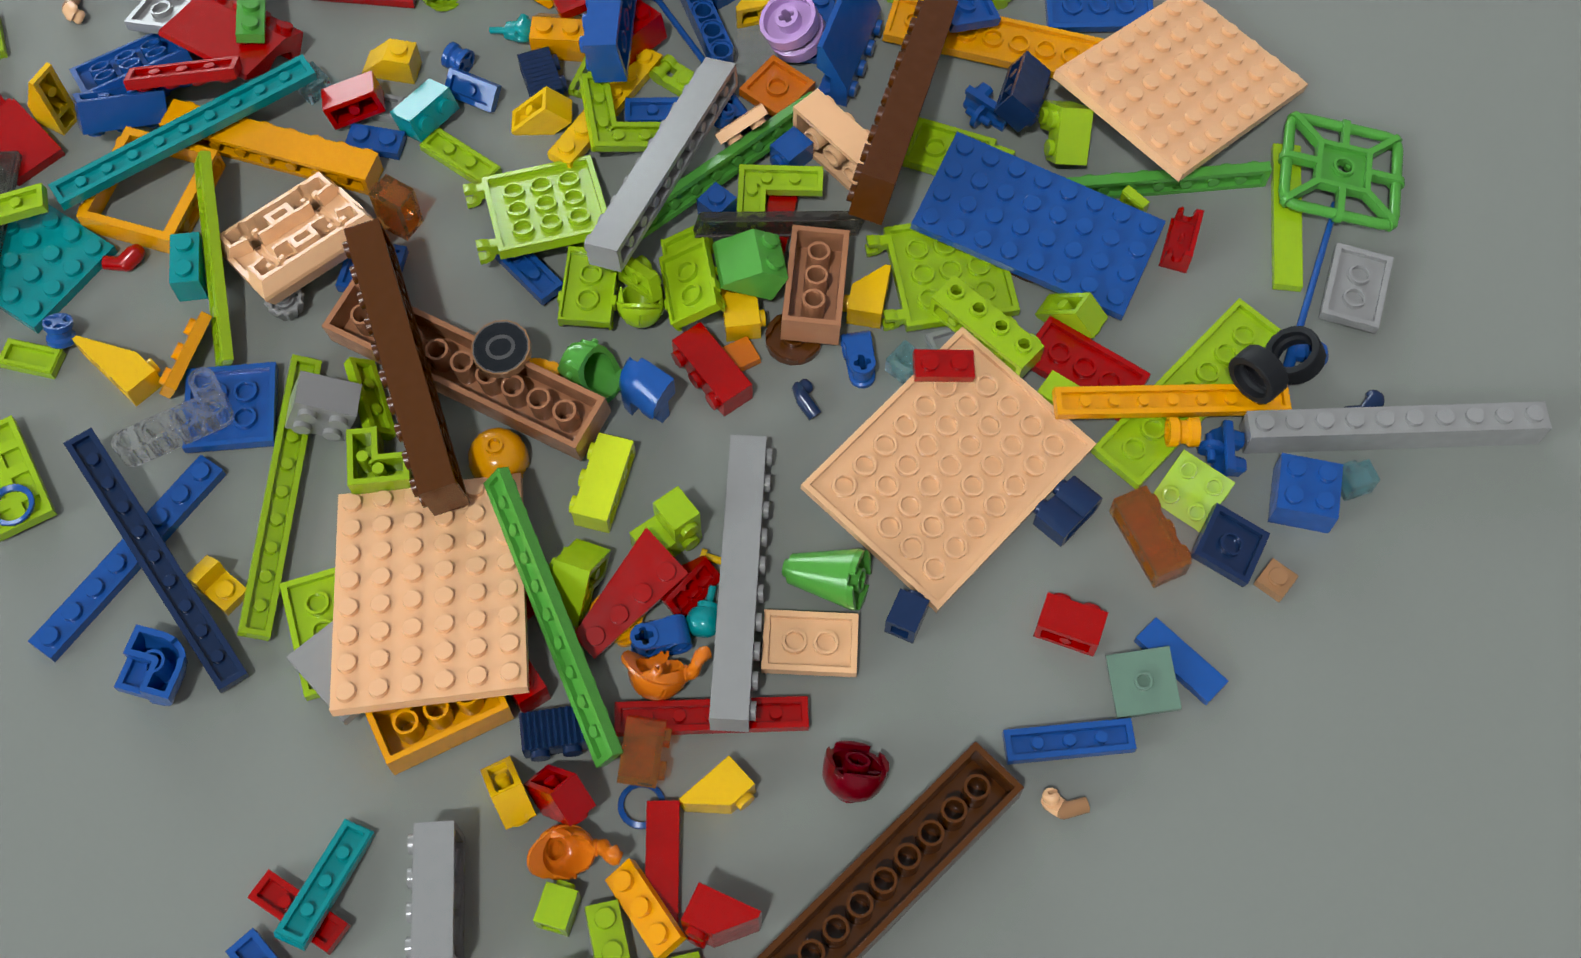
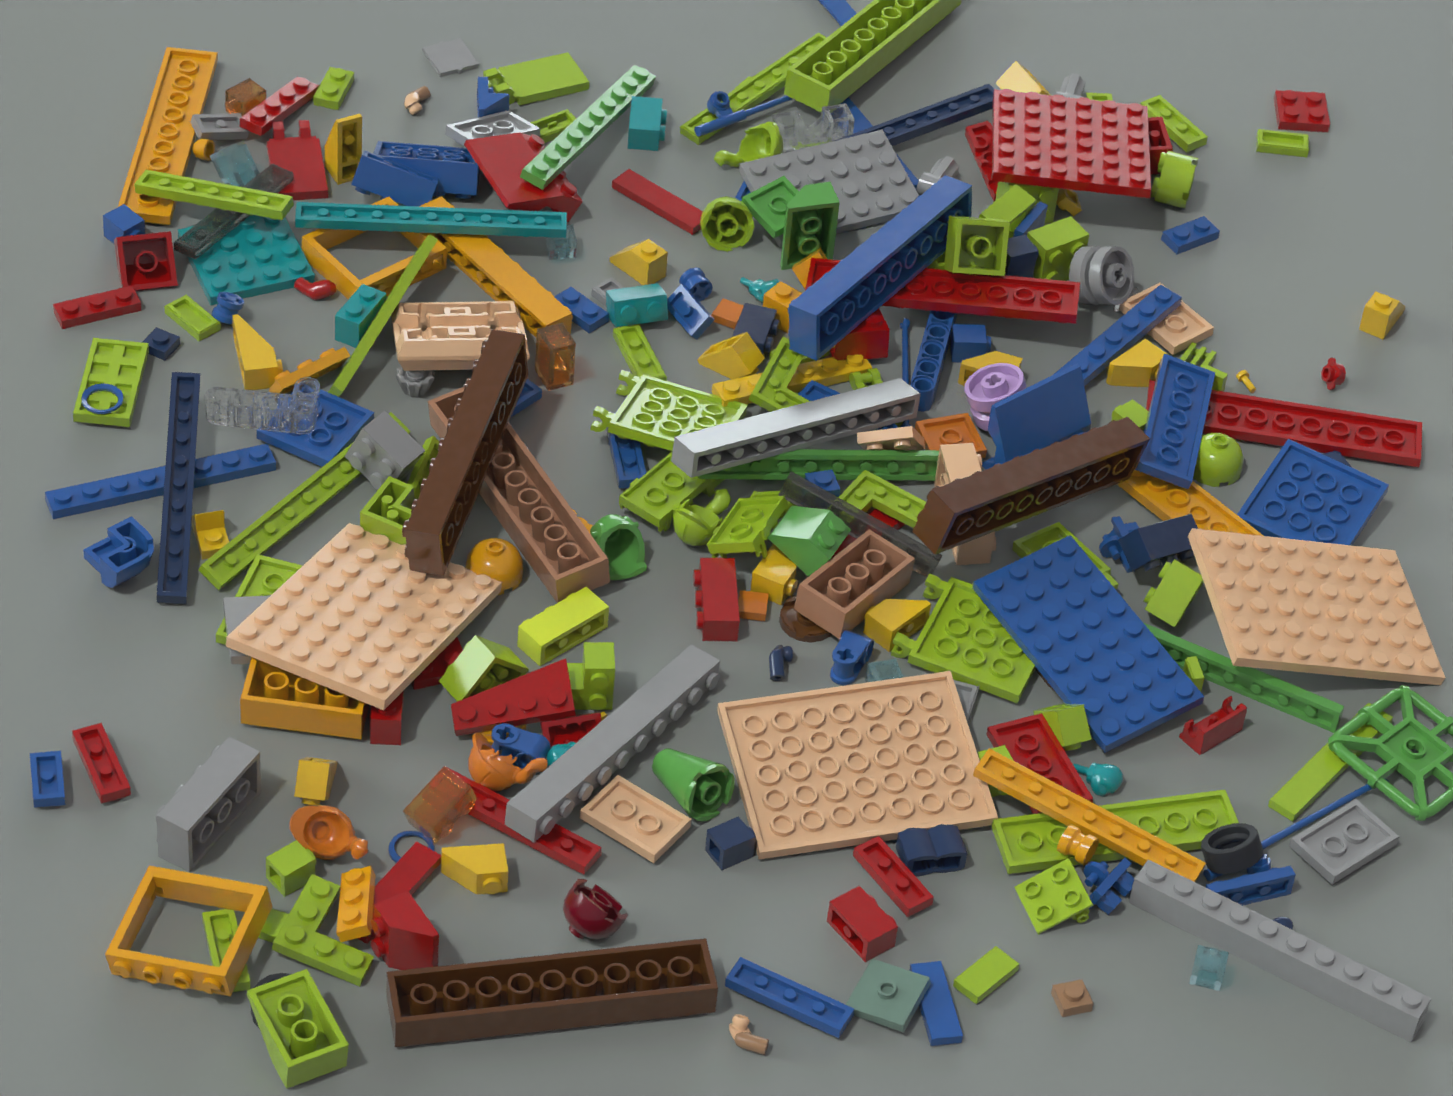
camera: 30 degrees right, 20 degrees down
(22, 404) = (162, 343): none -> dark blue plate
(181, 73) = (454, 175): red plate -> none
(324, 885) = (134, 753): teal tile -> none
(353, 100) = (583, 268): red brick -> none
(501, 349) = (553, 483): black tile -> none
(505, 70) = (727, 313): none -> orange tile
(551, 733) = (384, 760): dark blue brick -> none
(553, 618) = (442, 676): bright green plate -> none
(560, 795) = (352, 791): red brick -> none
(641, 279) = (708, 498): lime plate -> none
(646, 388) = (648, 579): blue brick -> none
(791, 149) = (920, 481): blue brick -> none
(943, 365) = (908, 686): red plate -> none
(959, 306) = (974, 683): lime brick -> none
(1056, 557) = (893, 876): none -> red plate
(1139, 345) = (1102, 777): none -> teal piece
(1150, 536) = (988, 905): clear orange brick -> none
(1197, 604) = (986, 975): none -> lime tile
(1230, 545) = (1050, 947): dark blue plate -> none
(1267, 365) = (1173, 829): black tyre -> none
(1305, 493) = (1152, 949): blue brick -> none
(1325, 380) = (1257, 886): none -> blue plate

